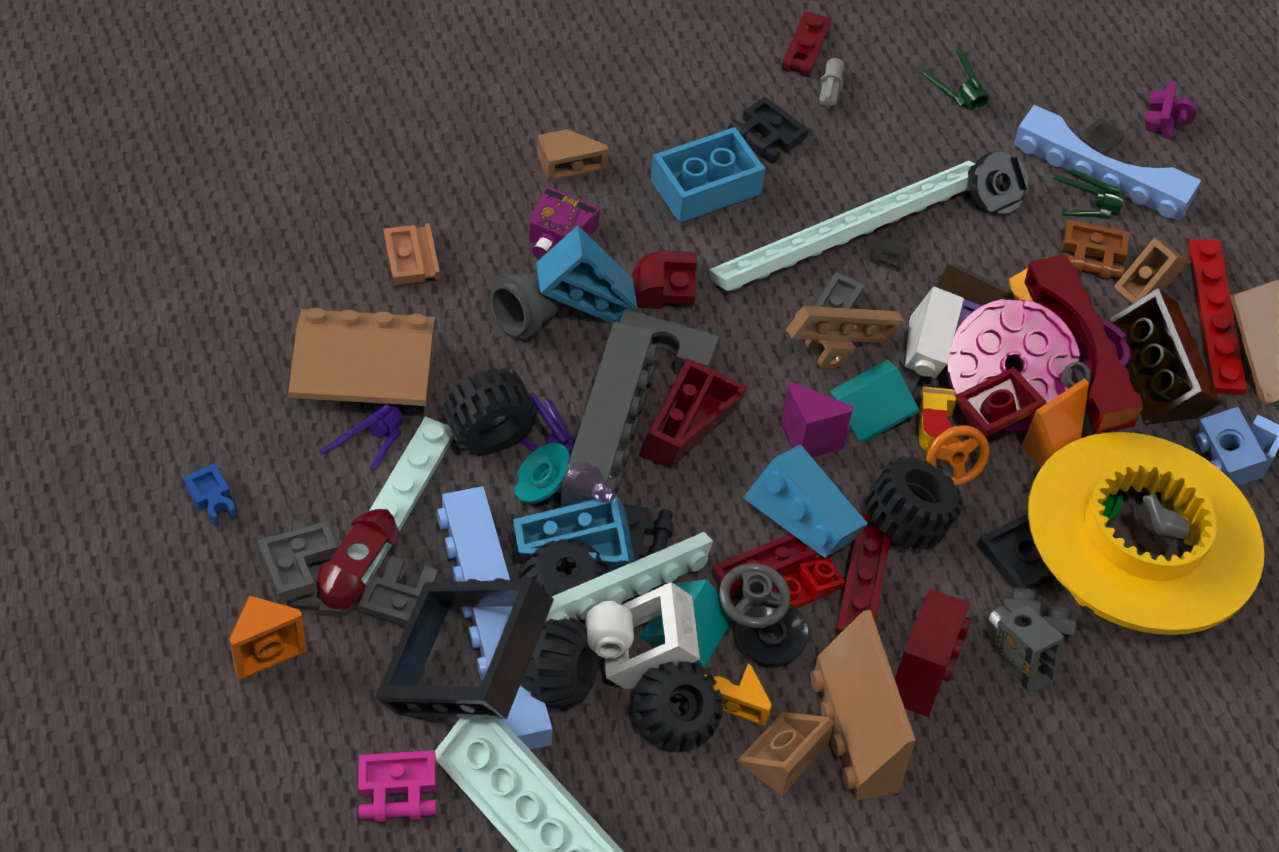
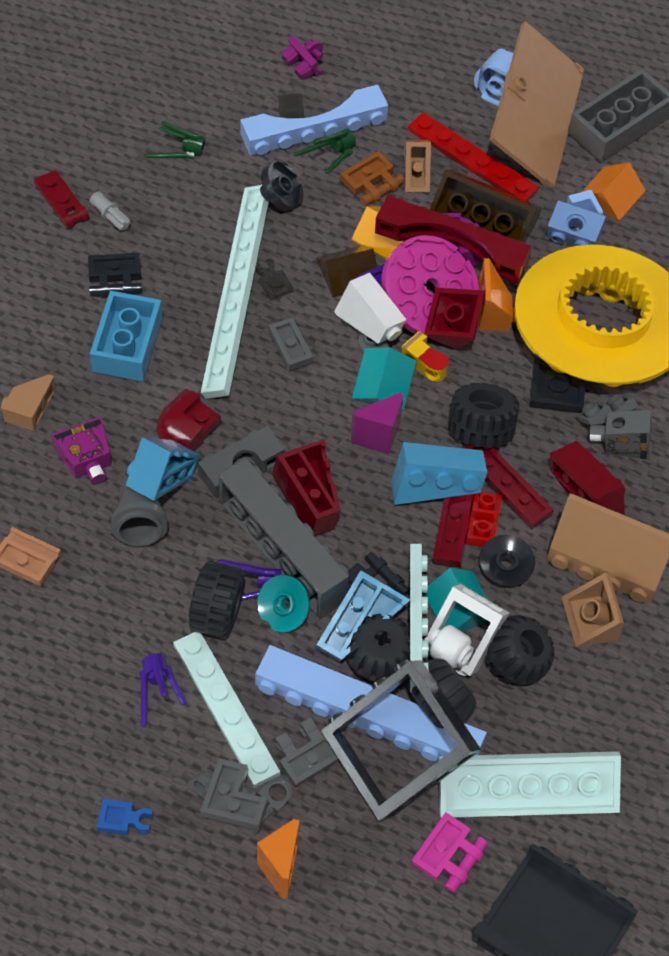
camera: 50 degrees left, 5 degrees up
(341, 577) = (274, 778): dark red piece -> none
(362, 357) = (98, 646): medium nougat slope -> none
(587, 481) = (338, 578): clear purple animal -> none
(745, 700) = (542, 606): light orange slope -> none
(758, 578) = (484, 538): dark grey piece -> none
(839, 327) = (322, 359): medium nougat plate -> none
(955, 452) = (462, 365): orange piece -> none
(1078, 372) = (471, 262): dark grey hinge -> none
(1166, 522) = (612, 298): dark grey animal -> none

